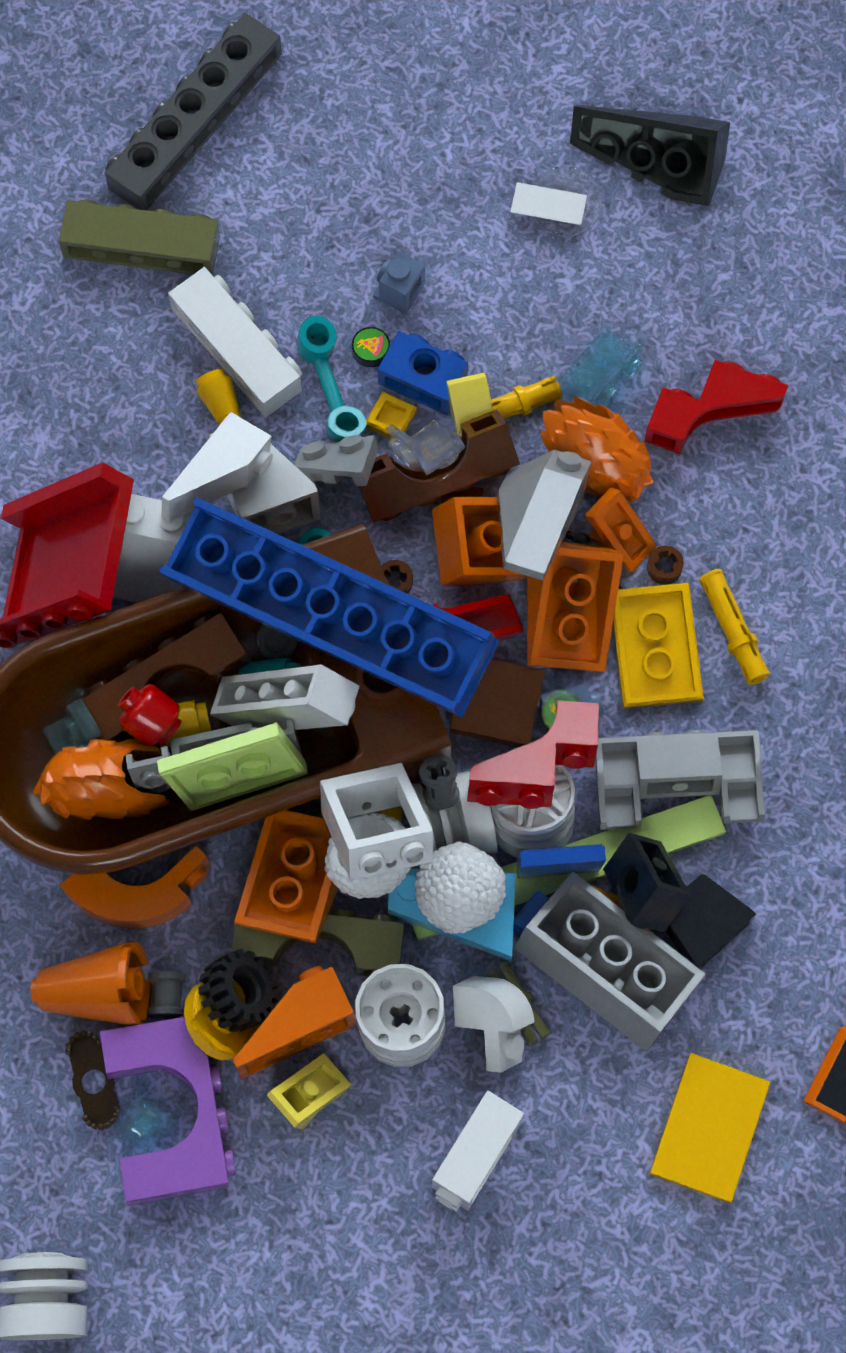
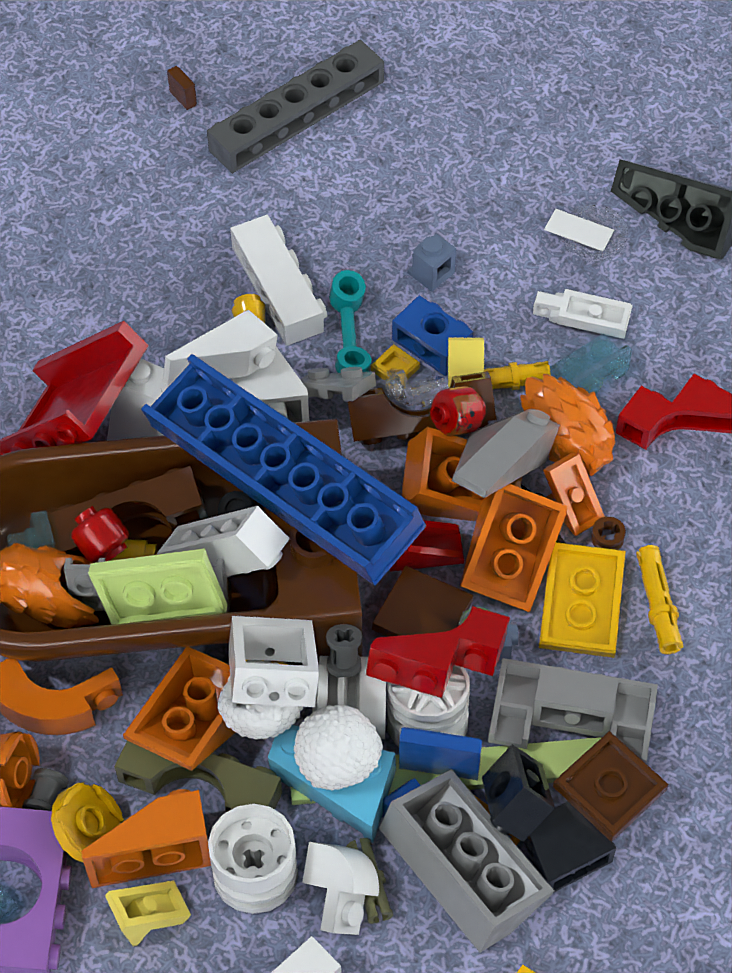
camera: 15 degrees right, 15 degrees down
(56, 117) = (182, 87): none -> reddish brown tile
(139, 237) = (220, 186): olive brick -> none
(223, 998) = (92, 800): black tyre -> none
(370, 346) = (390, 306): tile -> none
(481, 471) = (457, 410): none -> red head
(579, 305) = (584, 312): none -> white hinge
(736, 852) = (610, 786): none -> reddish brown tile

